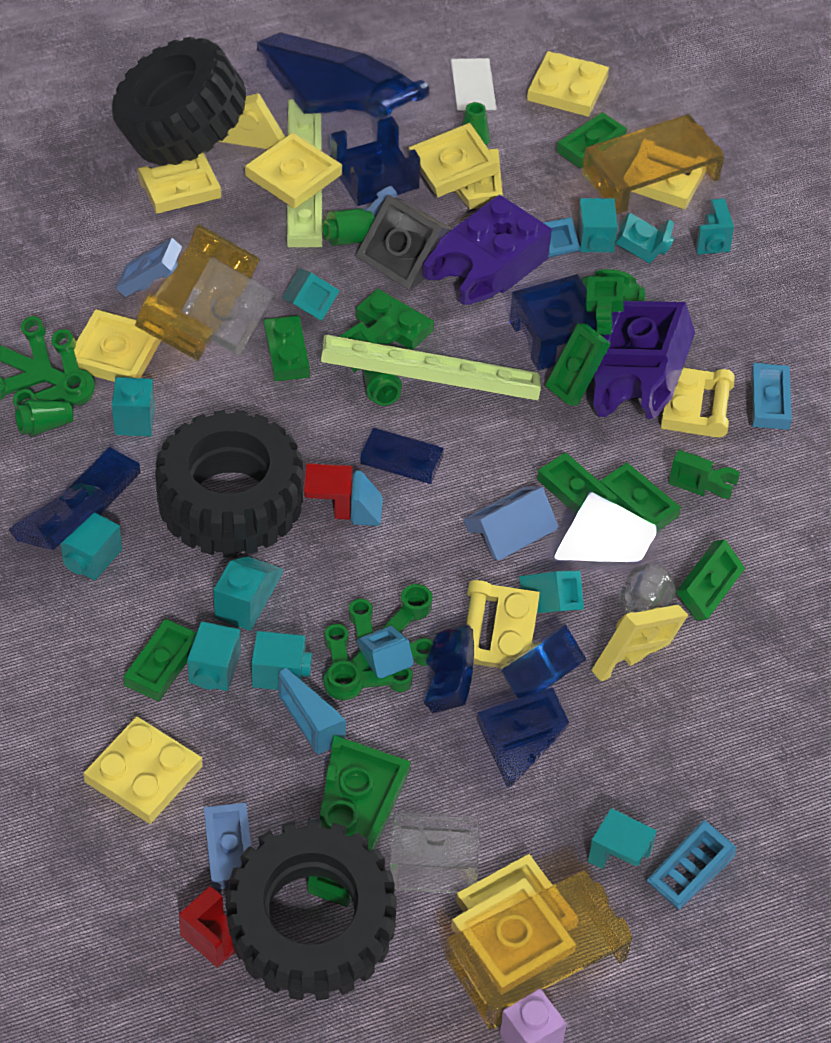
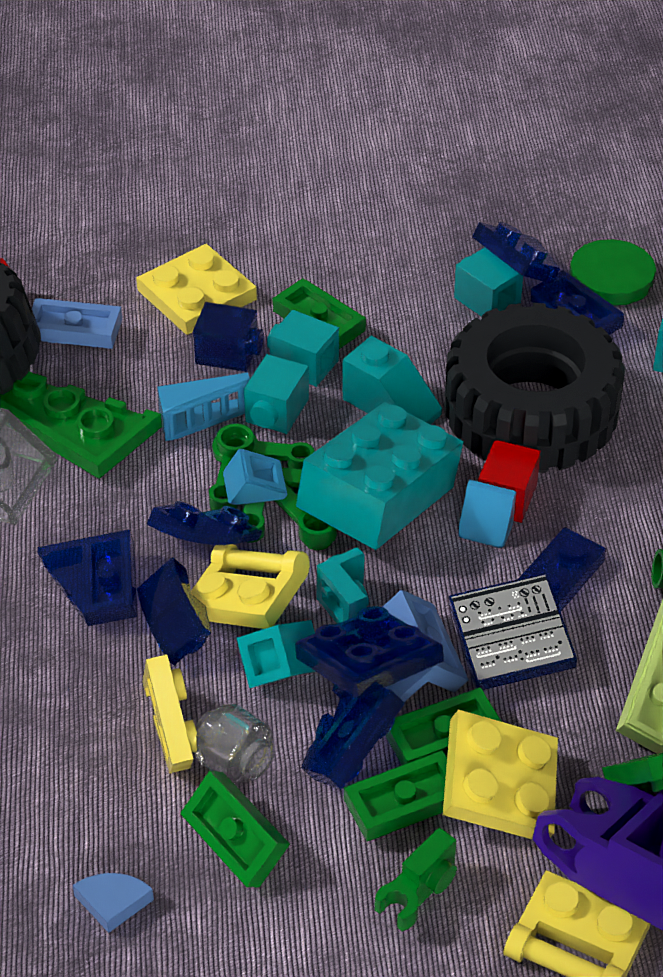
camera: 110 degrees right, 5 degrees down
(39, 471) = (614, 270): none -> green tile
(215, 717) = (227, 337): none -> clear blue brick
(365, 557) = (379, 474): none -> teal brick
(480, 462) = (512, 632): none -> tile
(484, 565) = (341, 585): none -> teal bracket
(550, 521) = (368, 651): none -> clear blue tile
(607, 445) = (499, 774): none -> light yellow plate
(787, 639) = (112, 897): none -> medium blue tile

